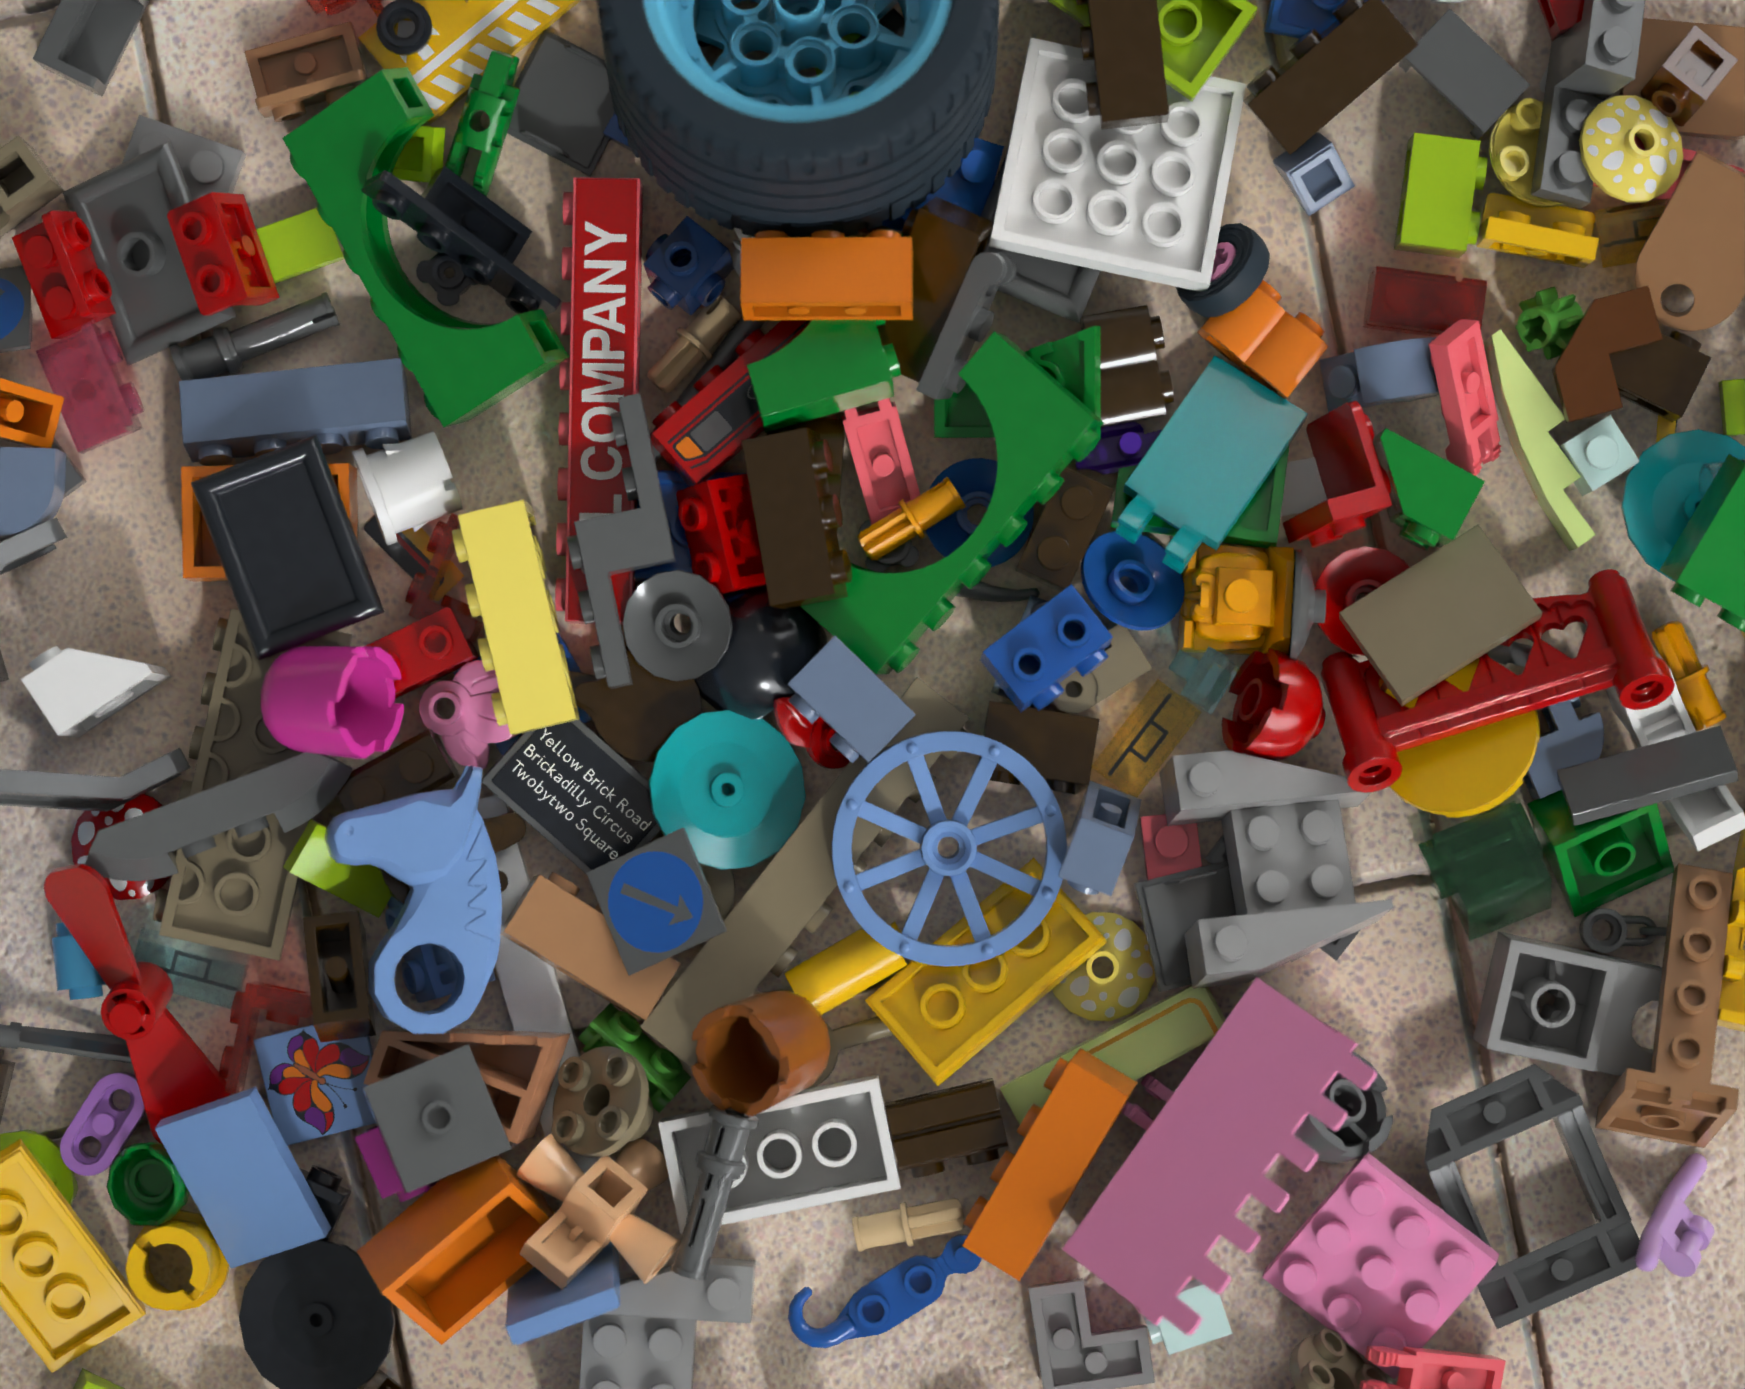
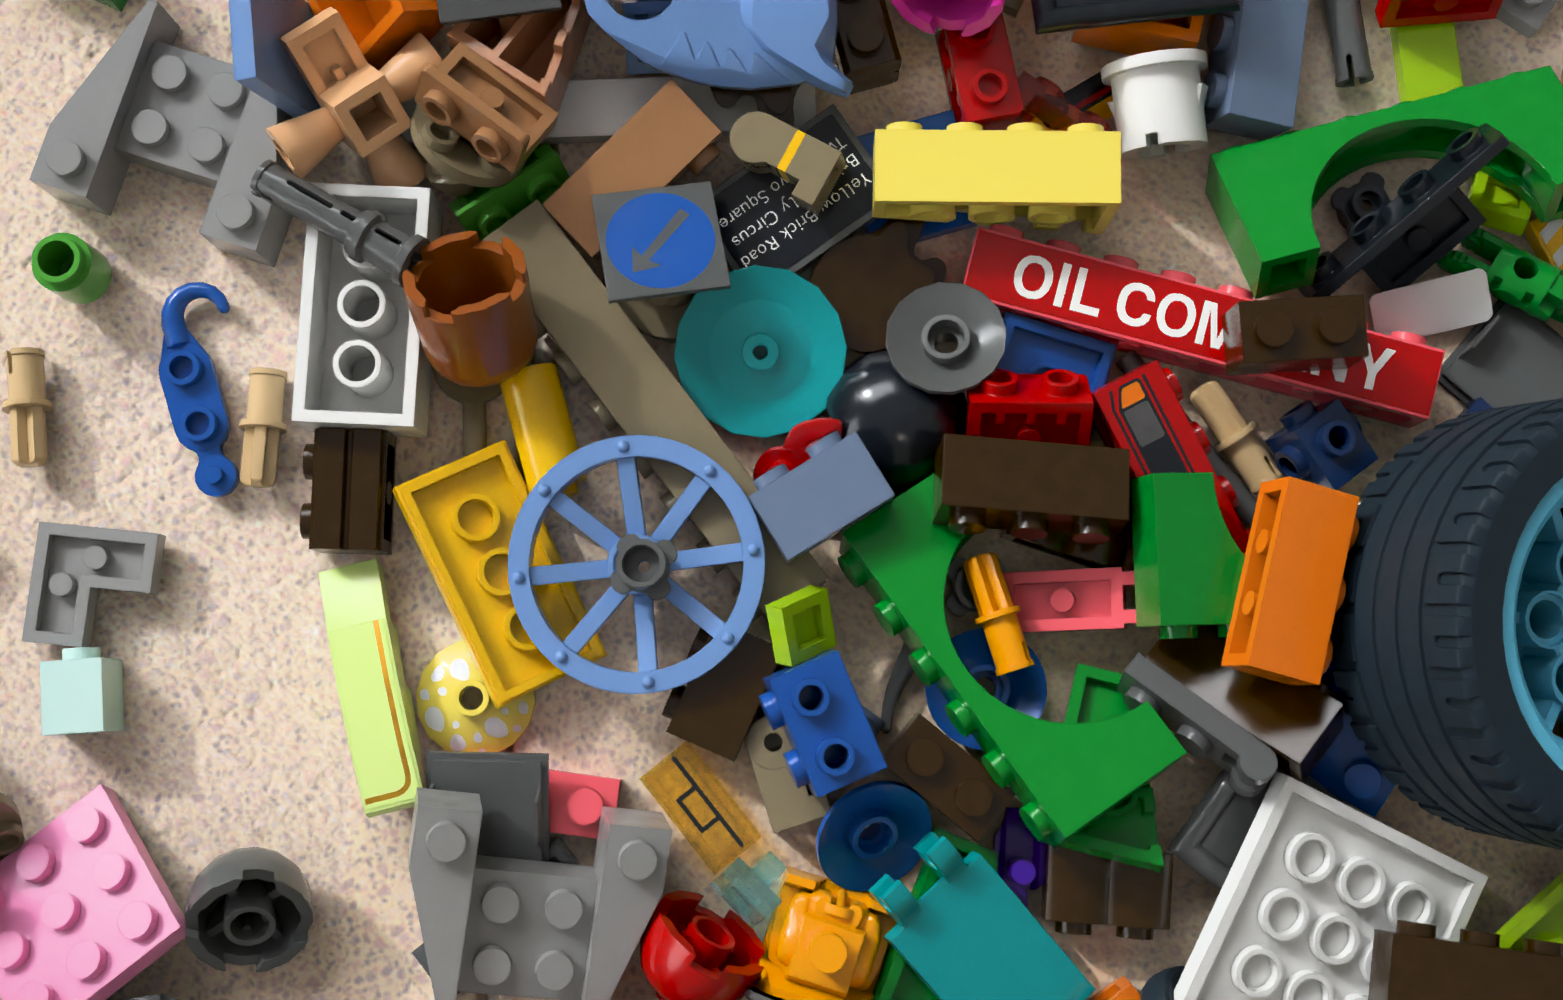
camera: 95 degrees right, 5 degrees down
(473, 722) = (890, 102): bright pink plate -> none
(529, 193) = (1433, 305): none -> white sticker
(537, 829) = (776, 147): none -> dark tan leg
(576, 1088) = (484, 107): none -> medium nougat bracket
(600, 318) = (1295, 334): none -> dark brown brick
(621, 542) = (1049, 300): dark grey bracket -> none
(940, 851) = (634, 551): none -> dark grey plate
(966, 689) = (801, 625): none -> lime plate
(1049, 1162) = (275, 587): orange brick -> none
(1100, 839) = (603, 728): sand blue brick -> none
(1213, 1153) = (220, 765): bright pink piece -> none

